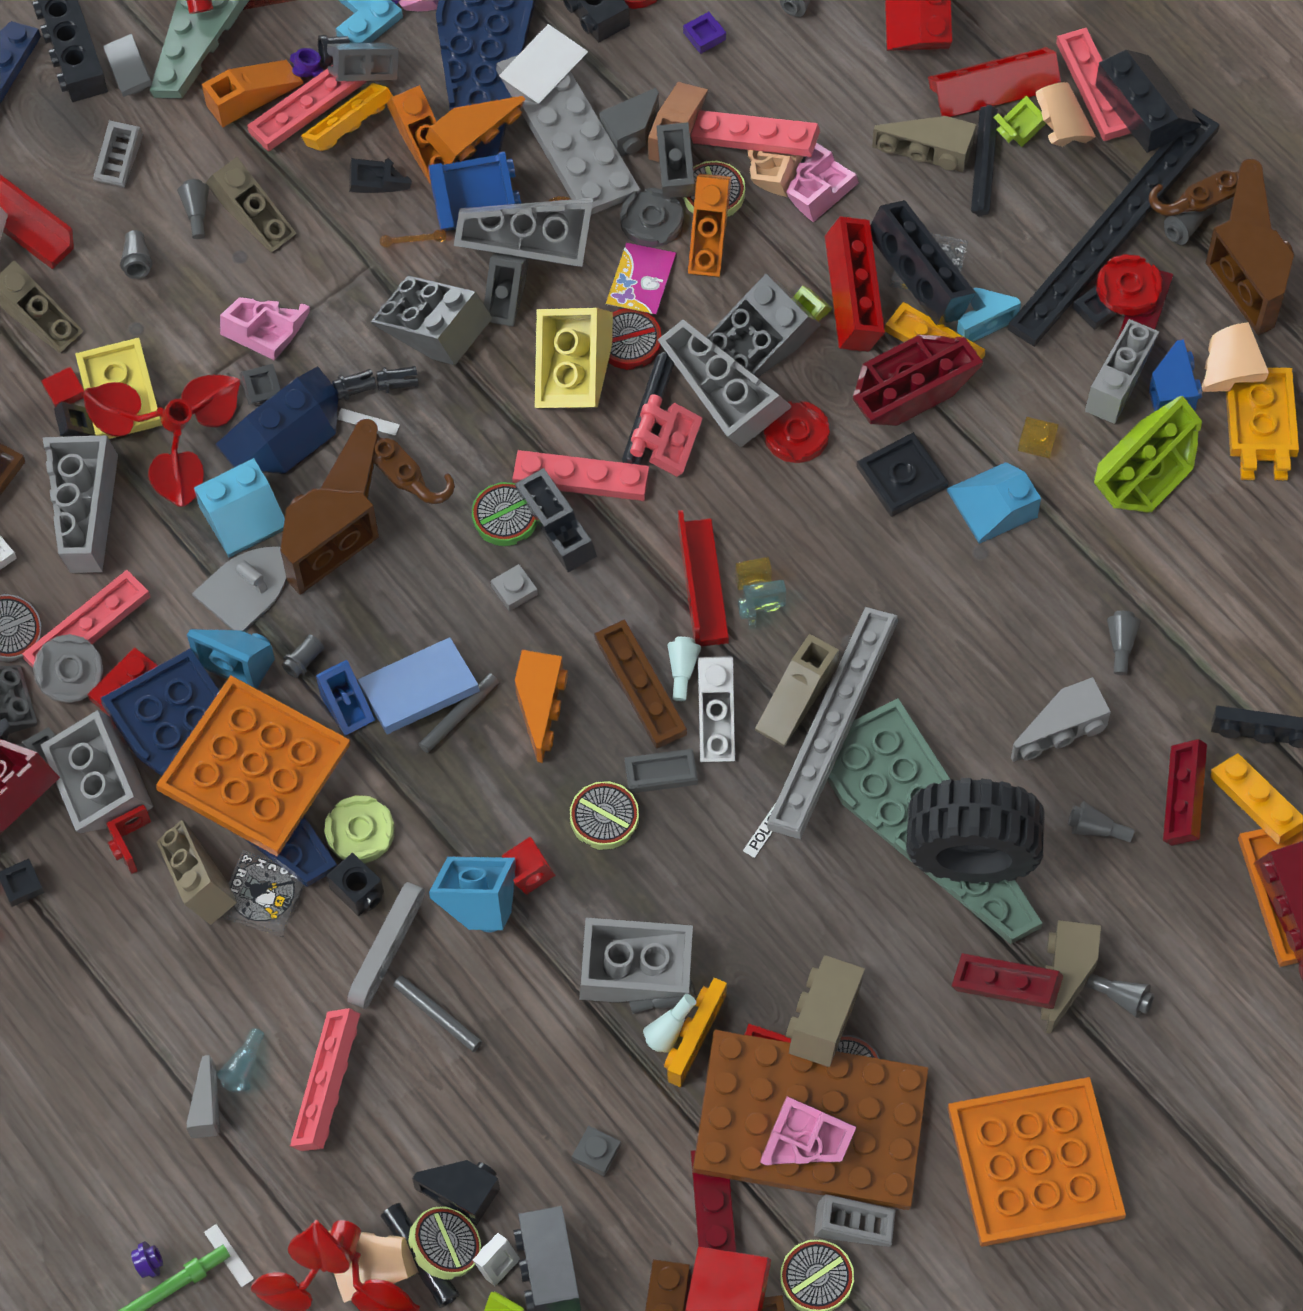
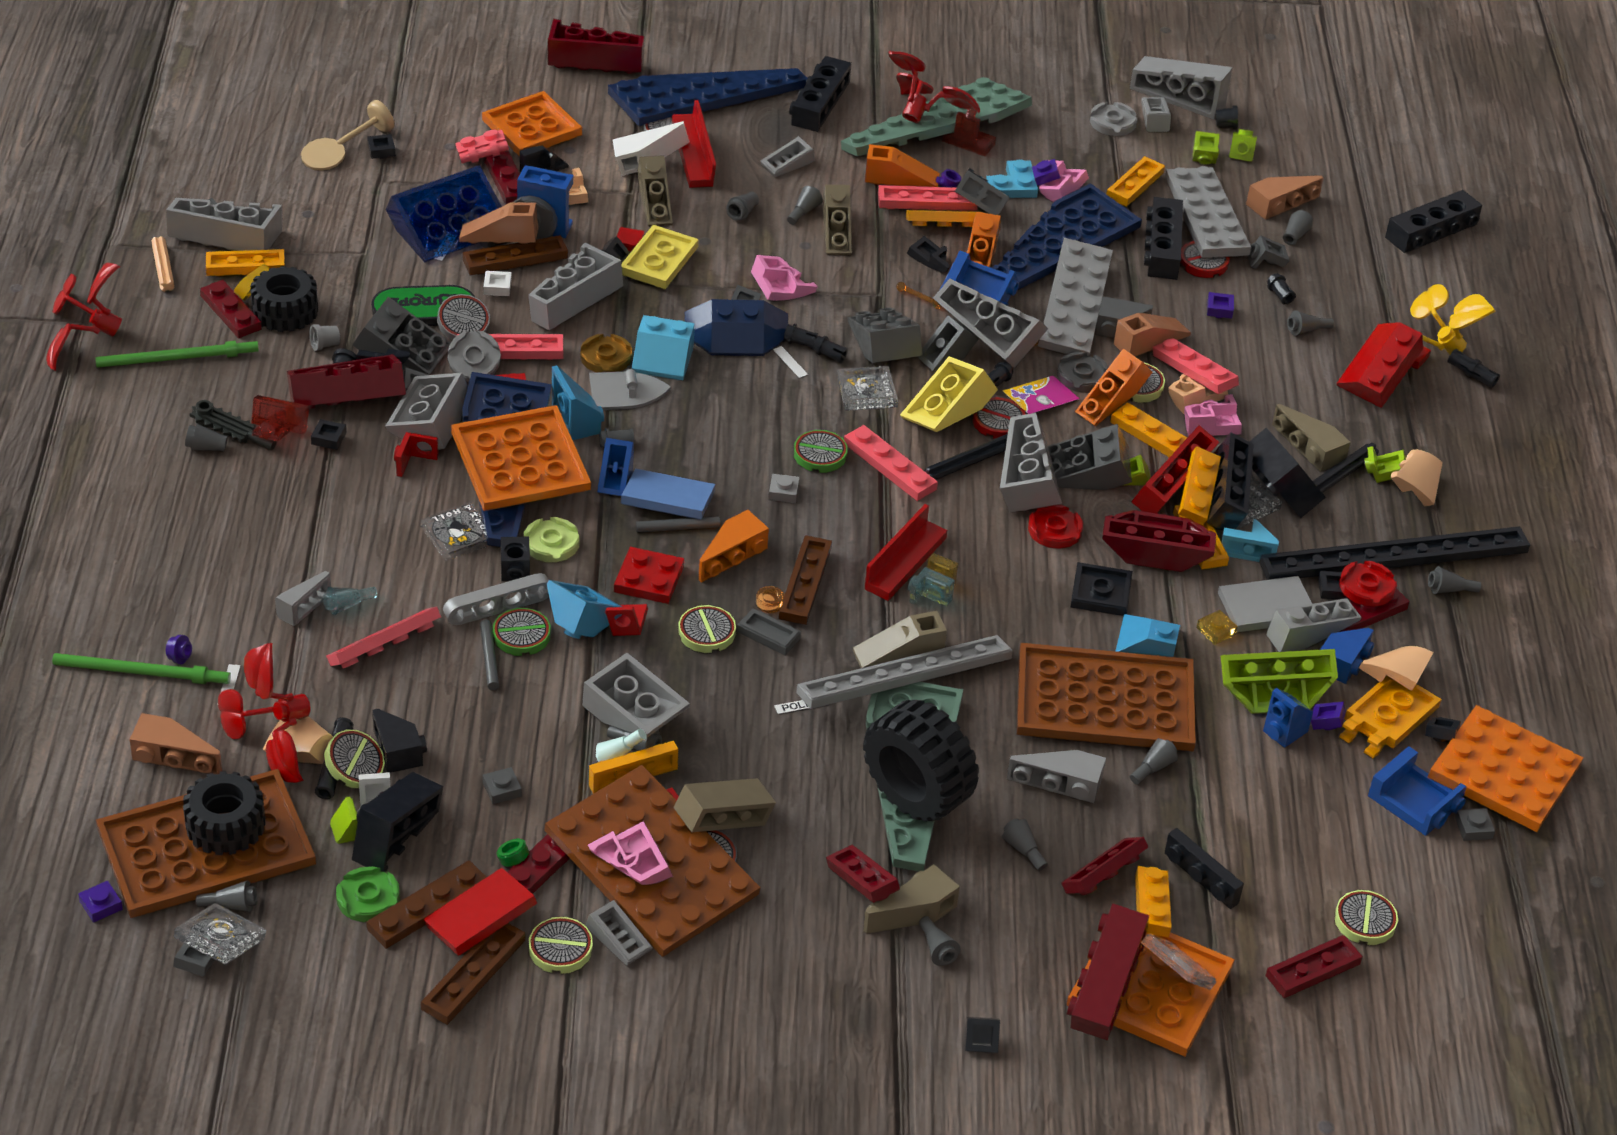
camera: 35 degrees right, 20 degrees down
(127, 65) = (840, 123): dark grey slope -> none
(173, 476) = (646, 256): red plant -> none
(185, 555) = (606, 353): none -> pearl gold tile
(195, 874) = (427, 494): dark tan slope -> none
(338, 518) = (703, 383): reddish brown slope -> none
(440, 962) = (521, 631): none -> tile
(468, 125) = (1009, 253): orange slope -> none
(473, 398) = (867, 388): none -> clear tile
(491, 796) = (649, 575): none -> red plate
(543, 63) = (1092, 253): white sticker -> none
(556, 520) = (845, 469): black slope -> none
(583, 287) = (1002, 372): none -> black pin
(626, 732) = (769, 599): none -> clear orange tile
(675, 160) = (1123, 334): dark grey slope -> none
(675, 438) = (967, 478): coral plate -> none
(682, 1217) = (512, 852): none -> green tile
(683, 657) = (848, 583): light aqua cone -> none
(716, 709) = (841, 618): white slope -> none
(776, 244) = (1147, 429): none -> light orange plate
(896, 287) = (1199, 485): none -> light orange plate
(948, 209) = (1283, 474): none -> black wedge
(995, 81) = (1389, 436): red panel -> none
(1019, 601) = (1105, 696): none -> dark orange plate
(1036, 1161) = (773, 986): orange plate -> none
(1056, 374) = (1254, 603): none -> light grey tile
(1083, 62) = (1463, 477): coral plate -> none
(1144, 99) = (1487, 496): black slope -> none
(1194, 501) = (1286, 718): none -> blue slope
(1219, 466) = (1328, 716): none -> dark purple plate
(1245, 251) = (1475, 609): reddish brown slope -> none
(1248, 1060) = (982, 1034): none -> black plate

